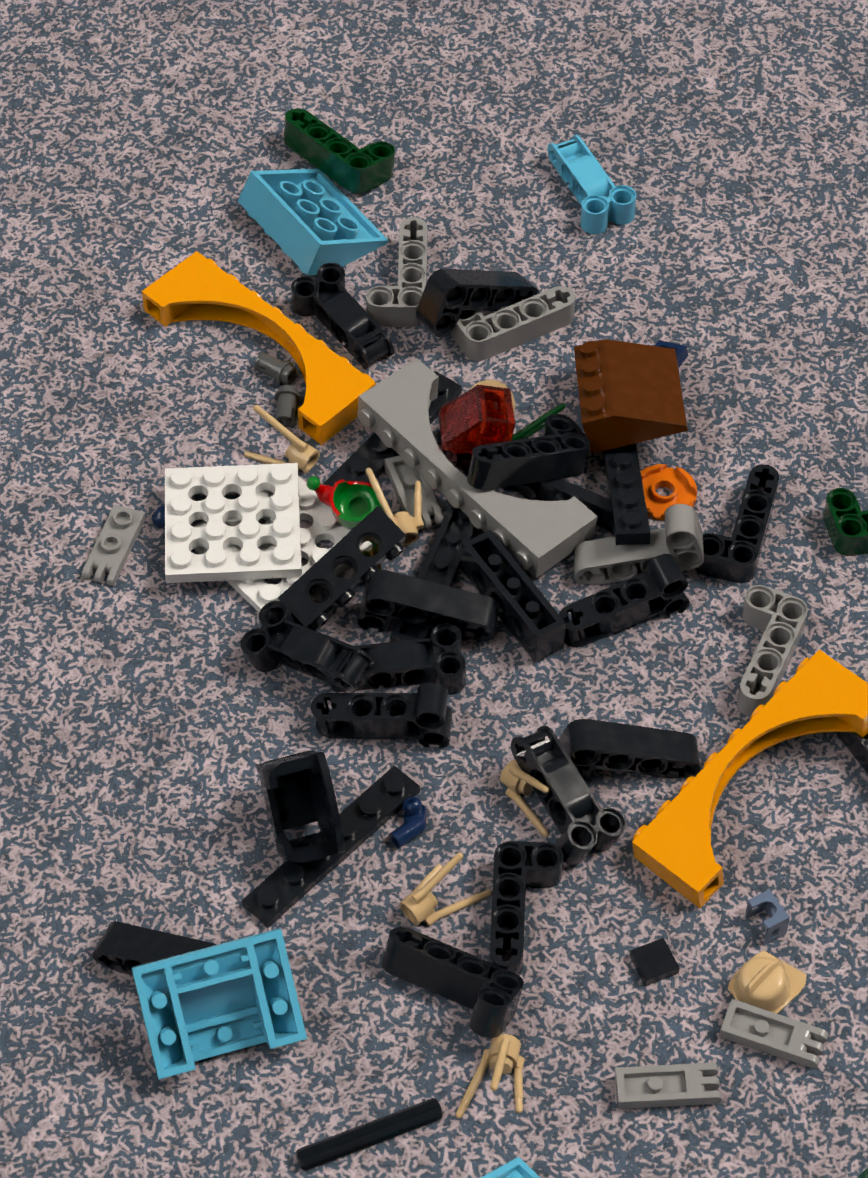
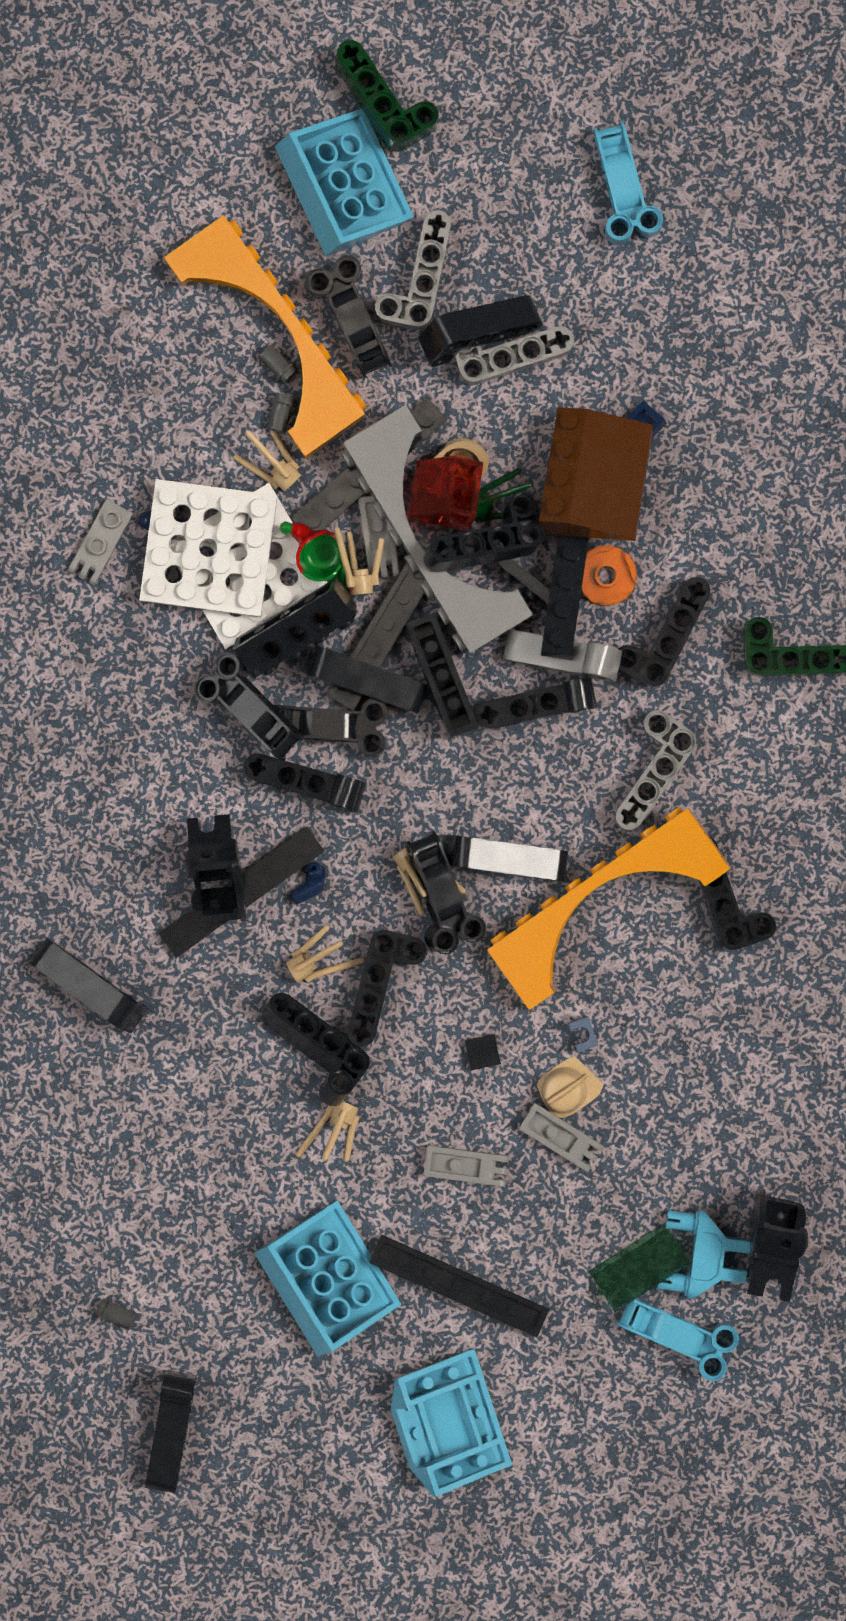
camera: 15 degrees right, 35 degrees up
(218, 1001) = (120, 1044): medium azure slope -> none
(369, 1134) = (225, 1160): black axle -> none

